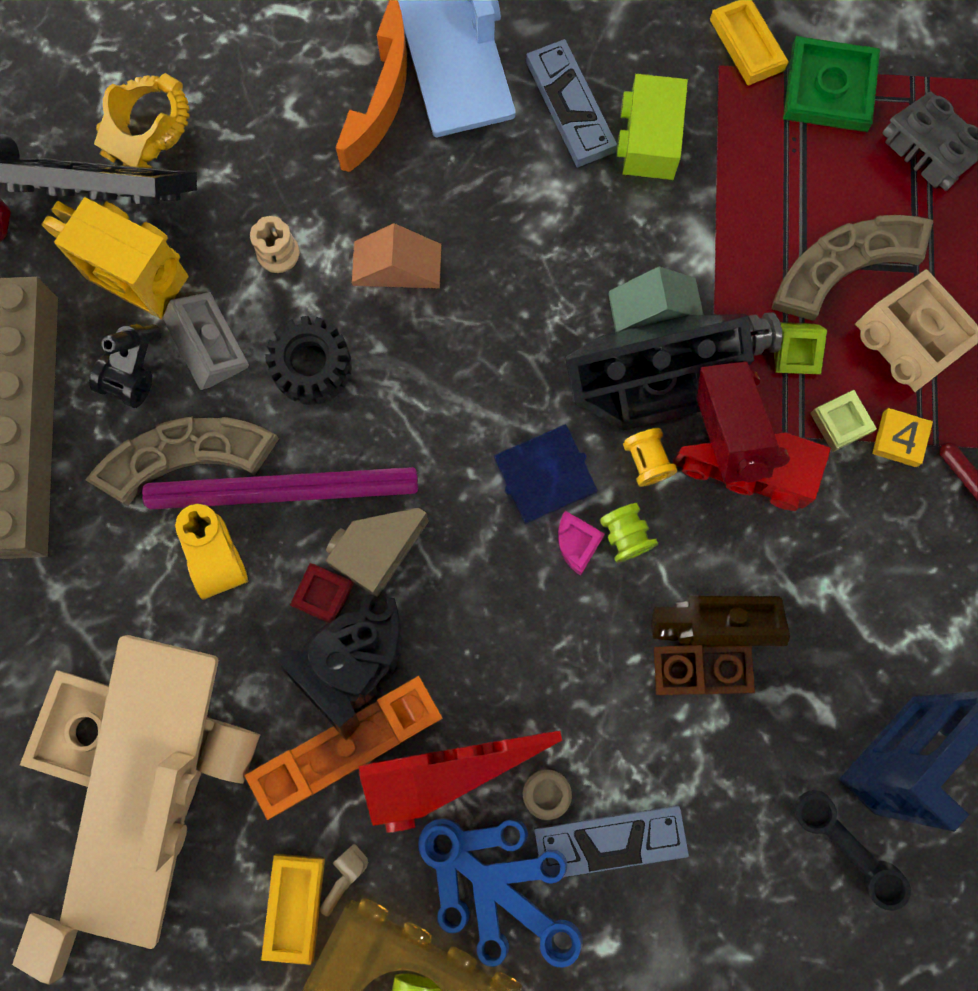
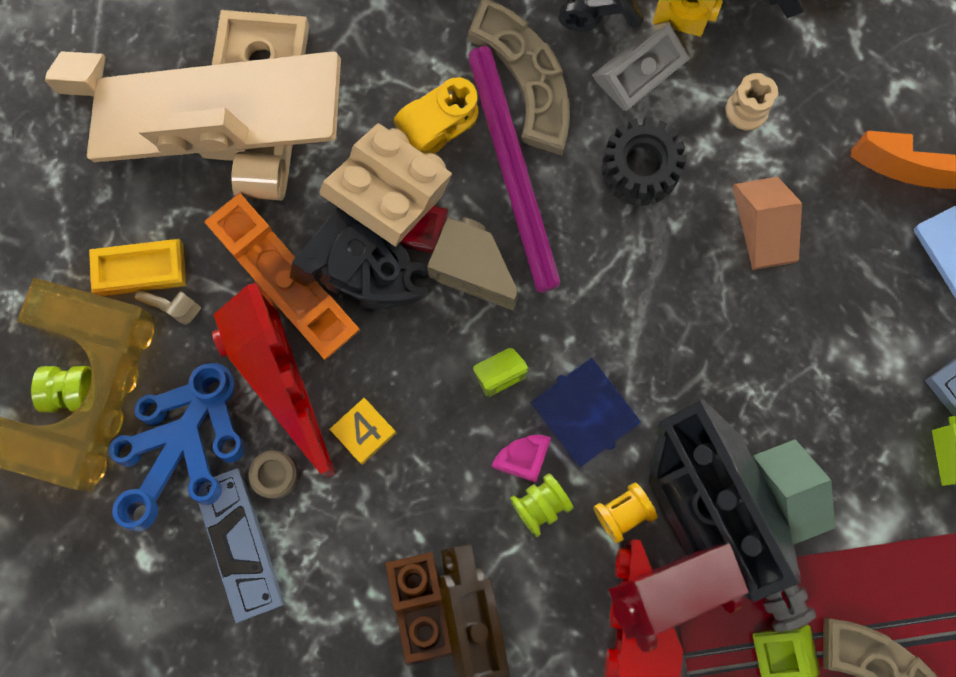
camera: 80 degrees right, 0 degrees up
(273, 615) = (387, 183): none -> tan plate
(489, 545) = (500, 371): none -> lime slope
(521, 693) = (363, 431): none -> yellow tile

